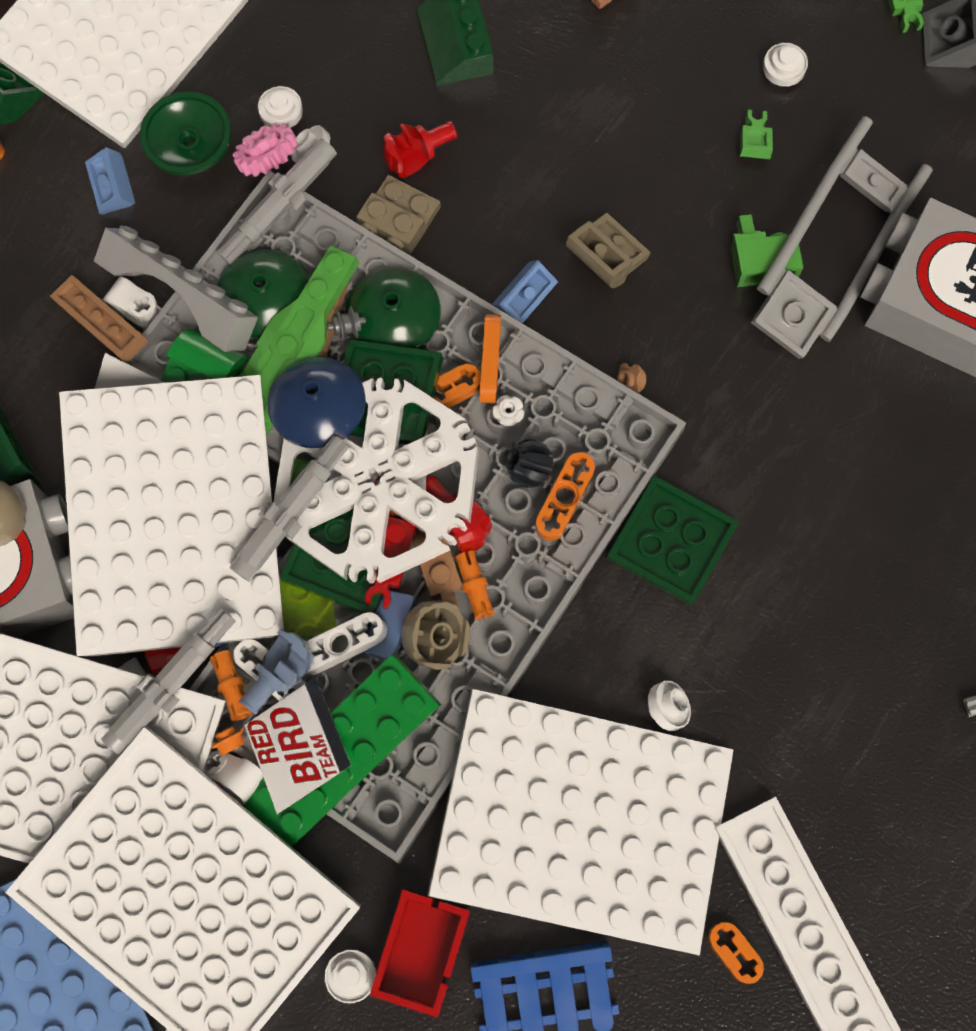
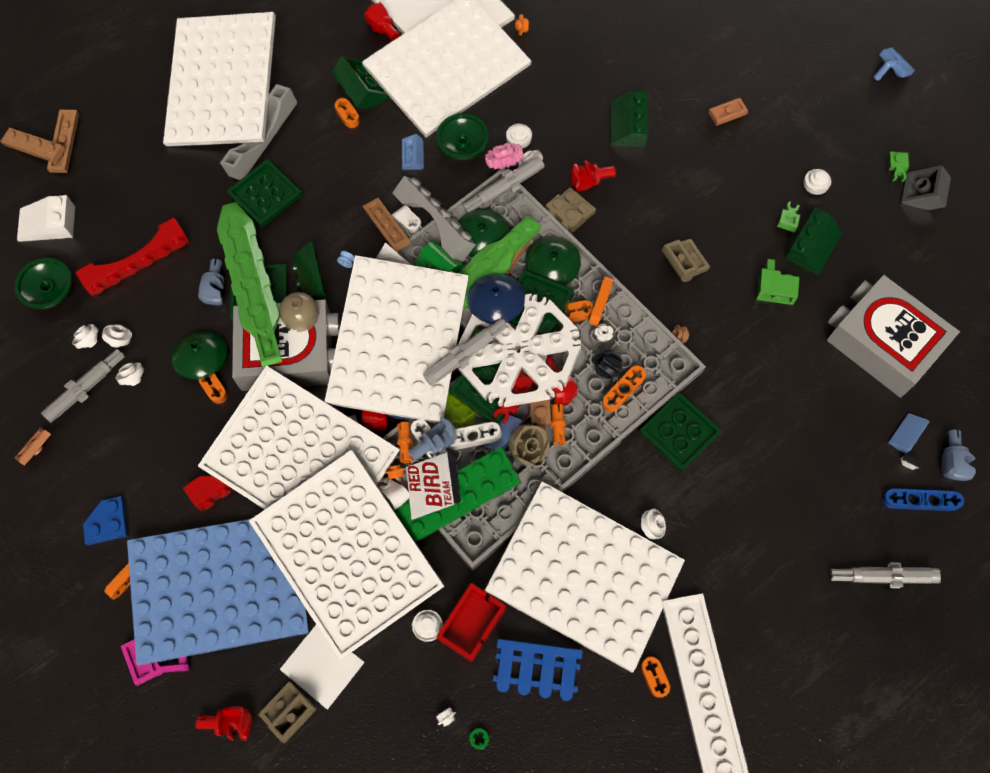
camera: 15 degrees right, 5 degrees down
(47, 395) = (346, 259): none -> light blue bush
(160, 691) = (365, 432): light grey piece -> none
(346, 323) = (524, 260): dark grey wheel -> none
(526, 291) = (632, 270): medium blue slope -> none
(794, 310) = (787, 322): light grey plate -> none
(803, 161) = (815, 242): none -> dark green slope

